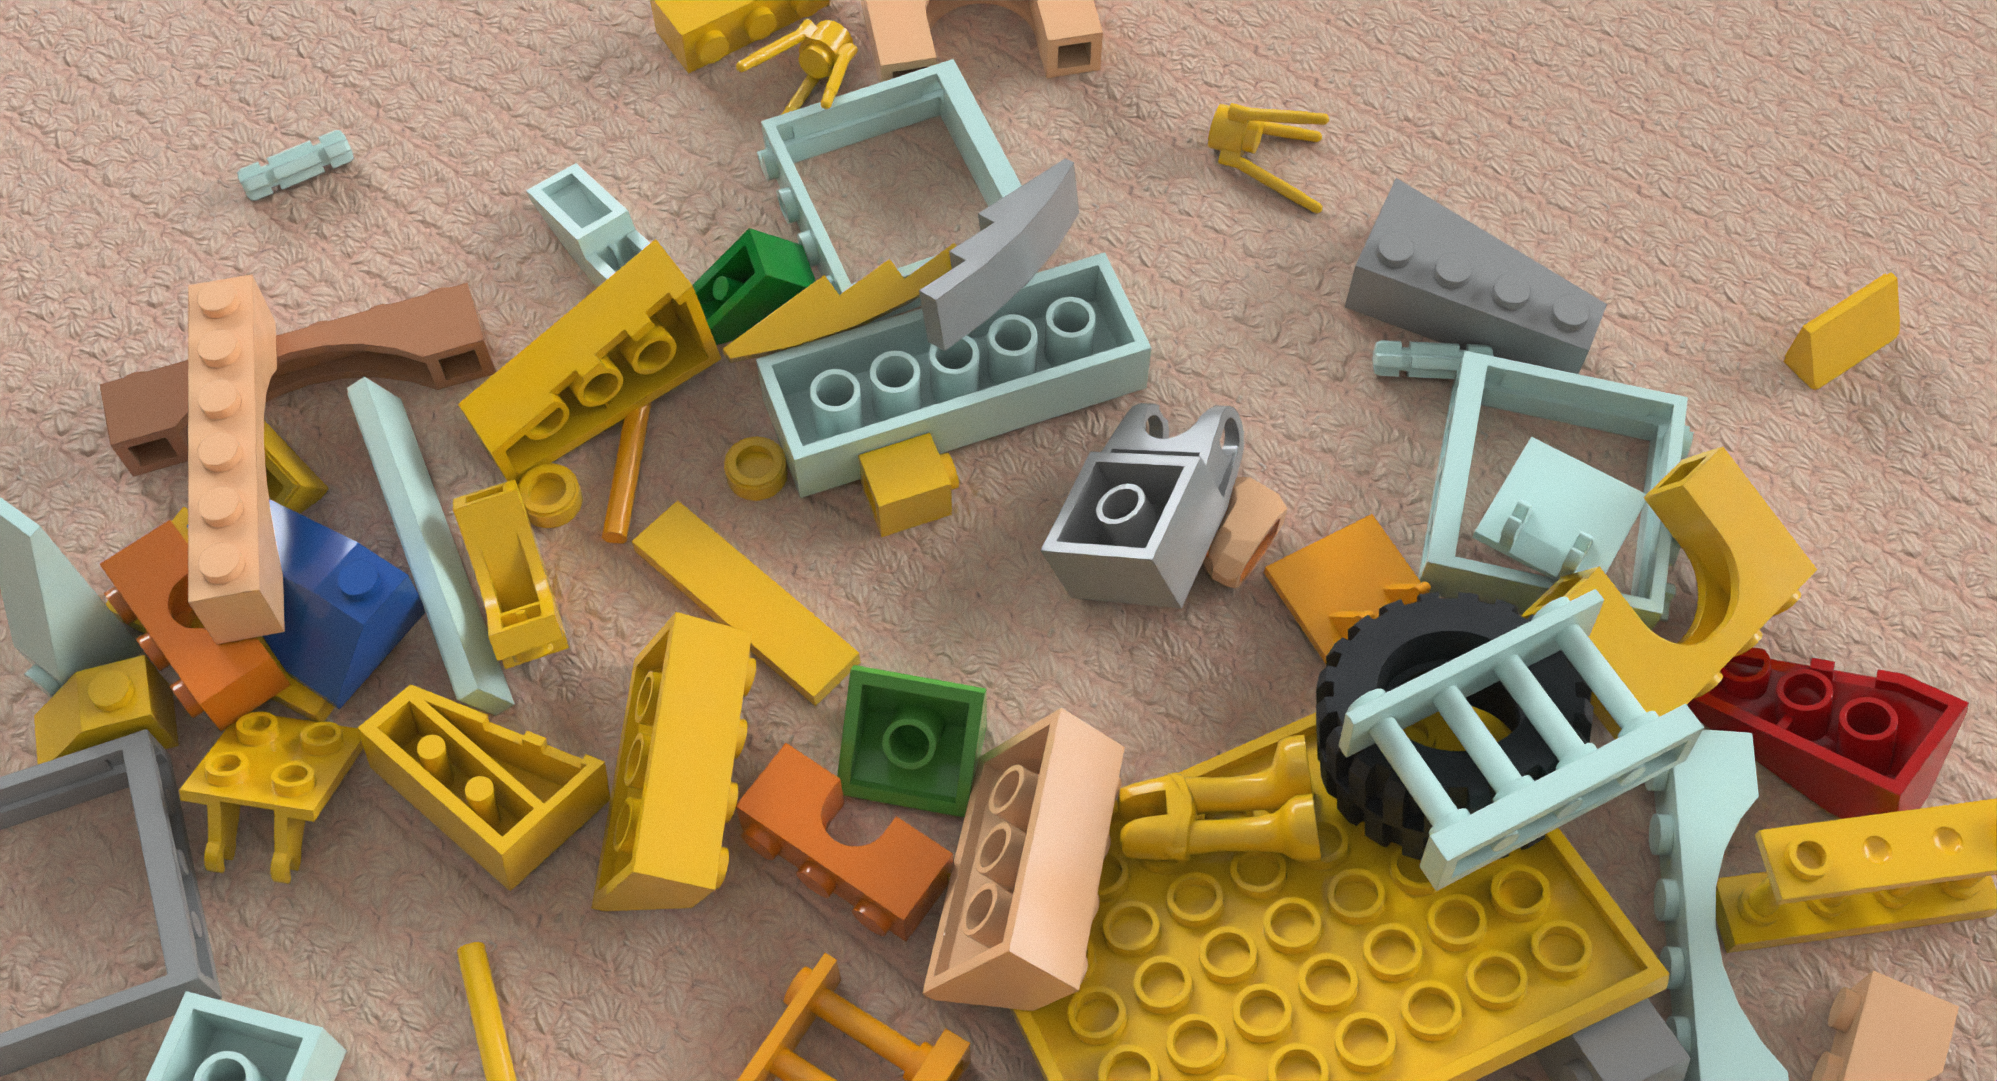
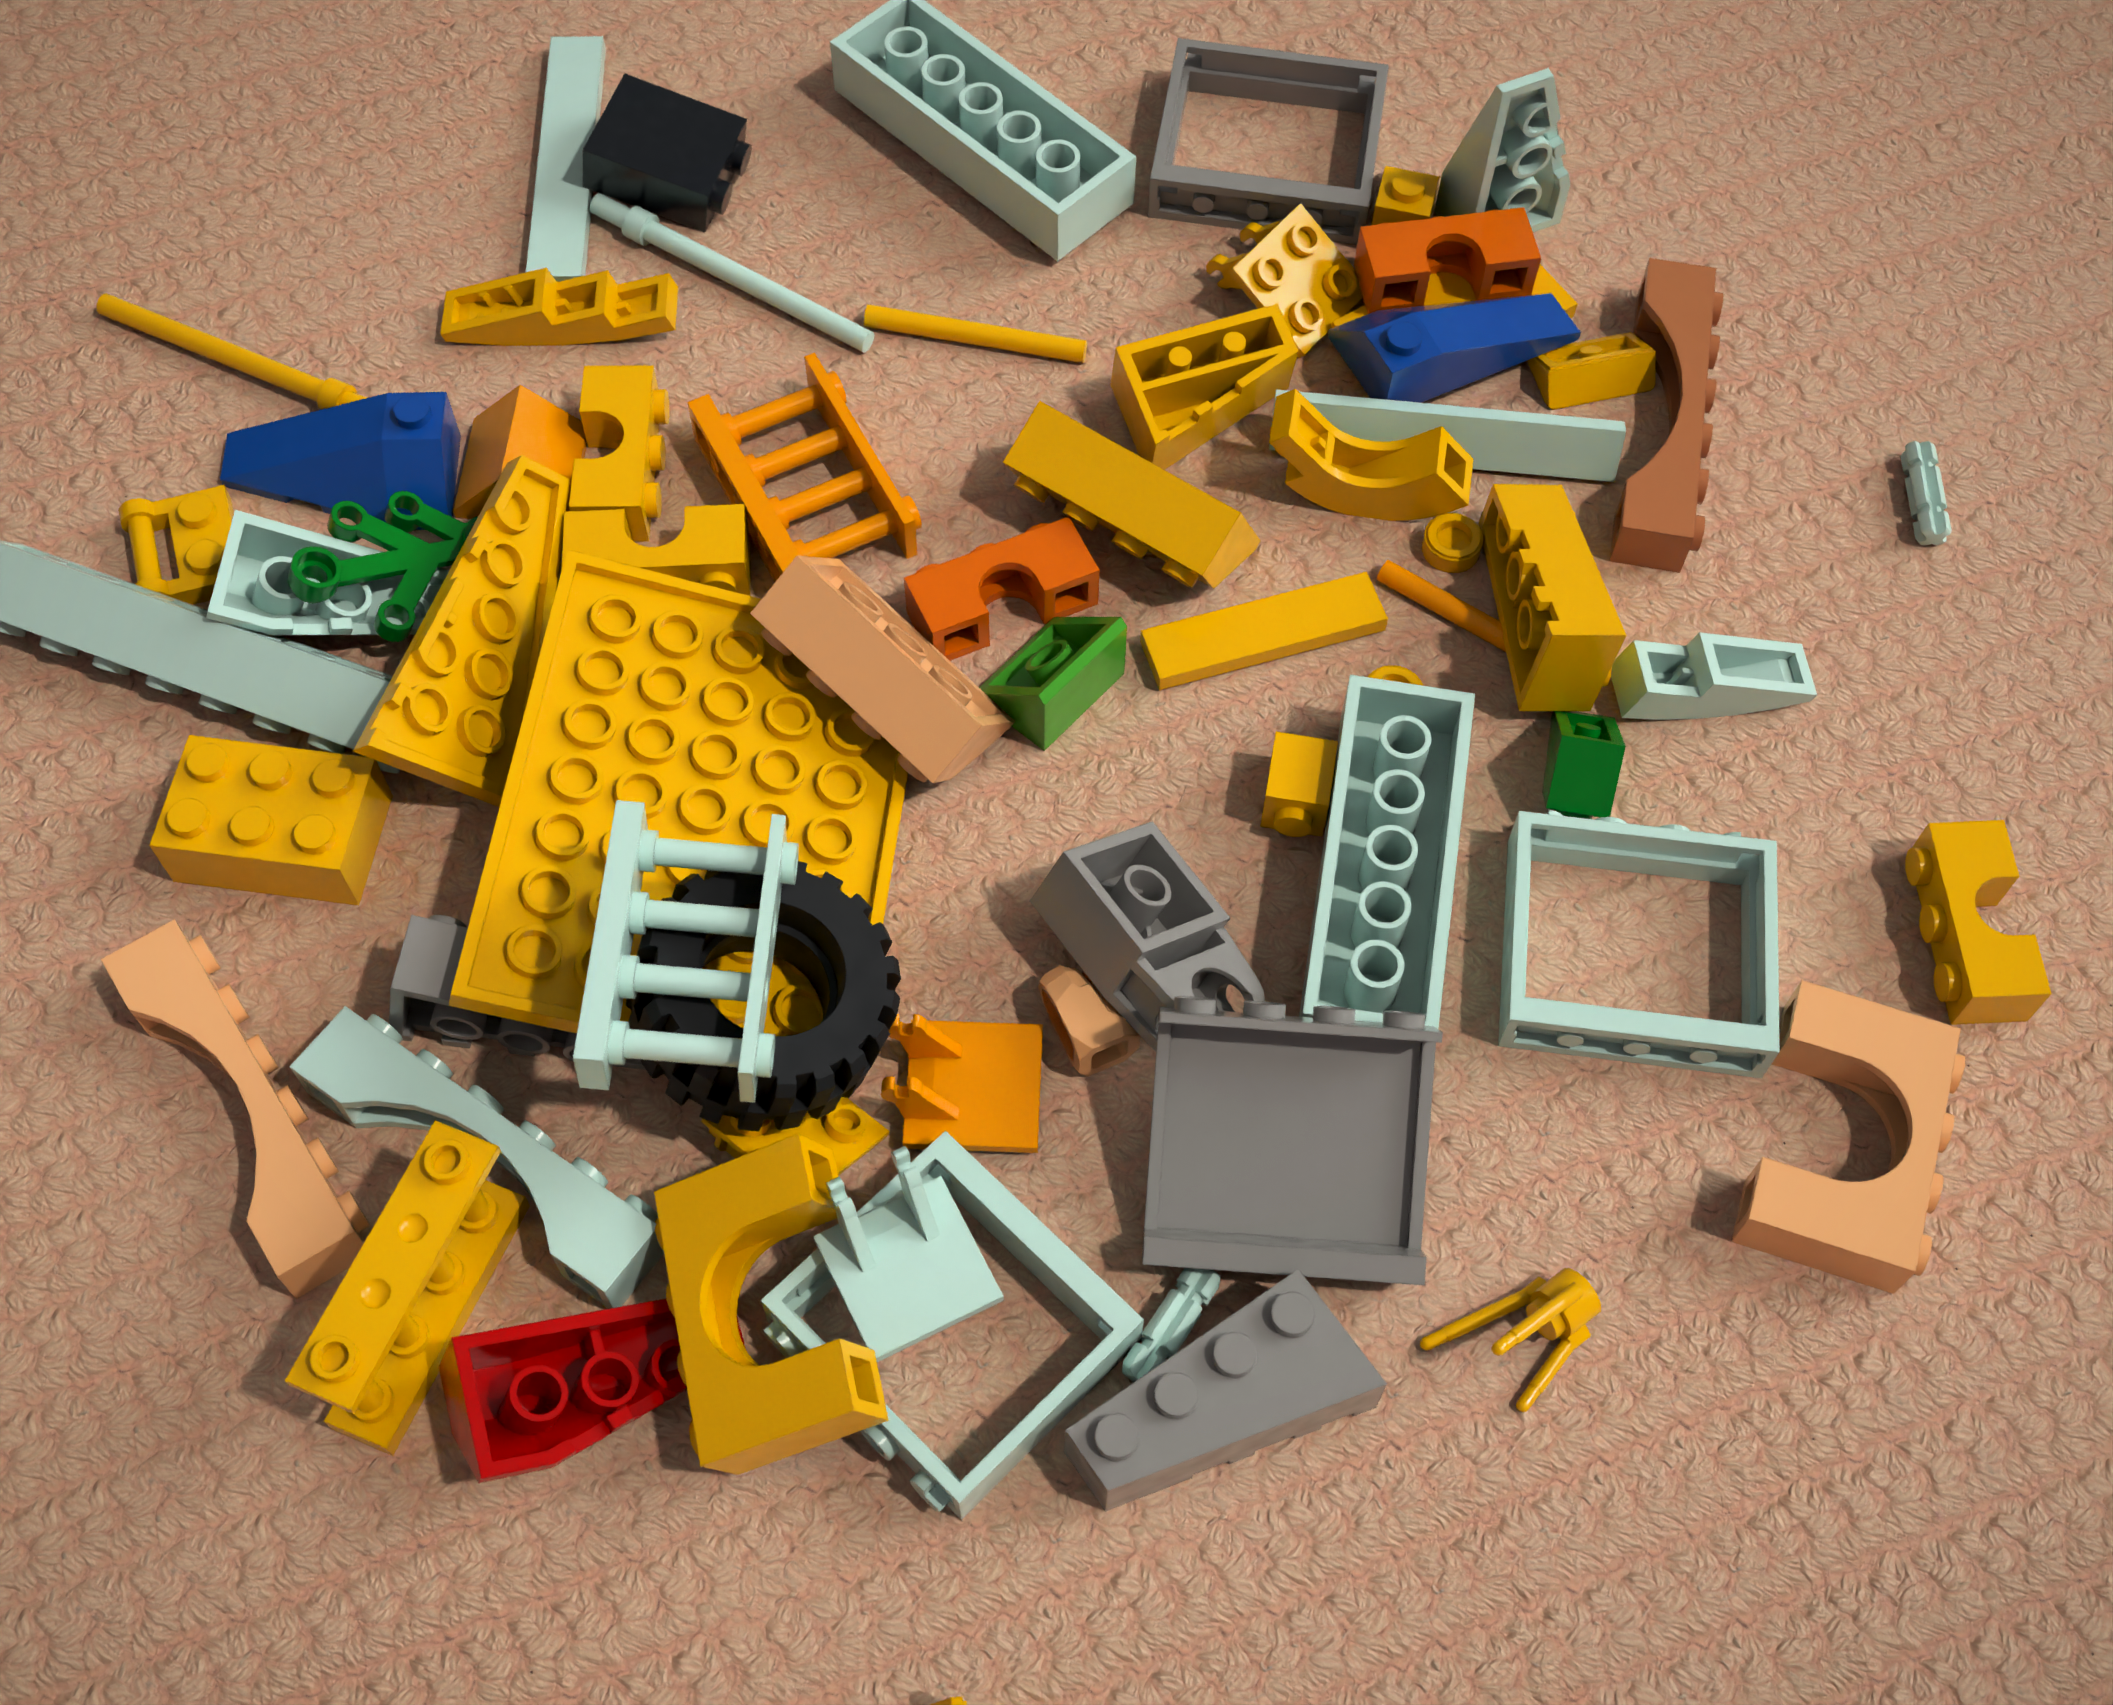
camera: 120 degrees right, 0 degrees up
(231, 535) = (1679, 328): light nougat arch -> none
(822, 53) = (1857, 955): yellow plant -> none
(823, 312) = (1495, 781): yellow slope -> none
(1001, 258) = (1482, 947): light grey slope -> none
(1166, 809) = (831, 779): yellow piece -> none
(1267, 319) = (1289, 1141): none -> light grey panel

